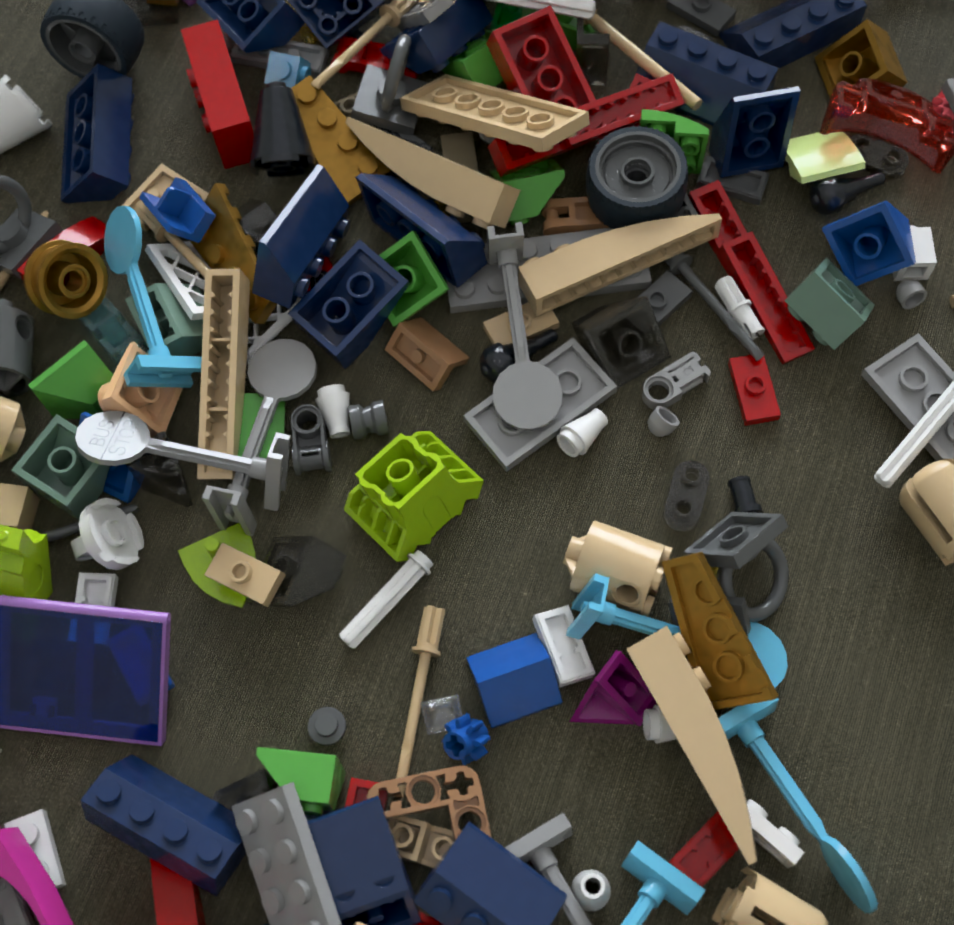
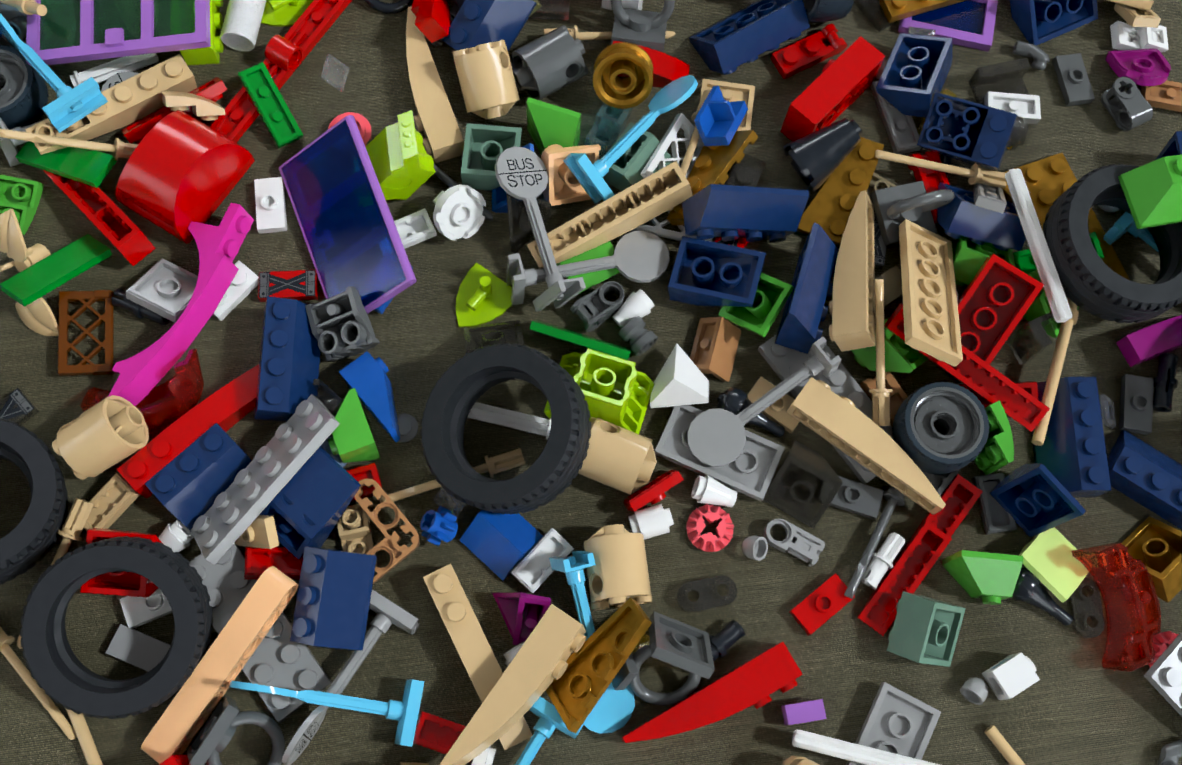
camera: 50 degrees right, 5 degrees up
(72, 779) = (288, 285): none -> tile
(156, 97) = (808, 51): none -> red plate
(165, 733) = (341, 325): none -> dark grey slope
(245, 574) = (475, 315): tan plate -> none
(247, 729) = (374, 390): none -> blue slope
(286, 69) = (880, 127): dark azure brick -> none
(321, 619) = (452, 402): none -> black tyre
(338, 479) = (580, 339): none -> green piece
(445, 404) = (679, 382): none -> white slope
(491, 507) = (618, 457): none -> tan cylinder
(549, 491) = (653, 491): none -> red plate
(571, 216) = (880, 395): none -> tan piece
(580, 509) = (651, 521): none -> white brick
(588, 901) = (385, 670): white cone -> none
(607, 467) = (709, 542): none -> coral gear
(615, 768) = (470, 642): none -> tan slope
(801, 220) = (985, 574): none -> bright green slope
(806, 506) = (728, 695): none -> red slope
(856, 463) = (803, 712): none -> medium lavender piece
(871, 242) = (995, 638): blue slope -> none

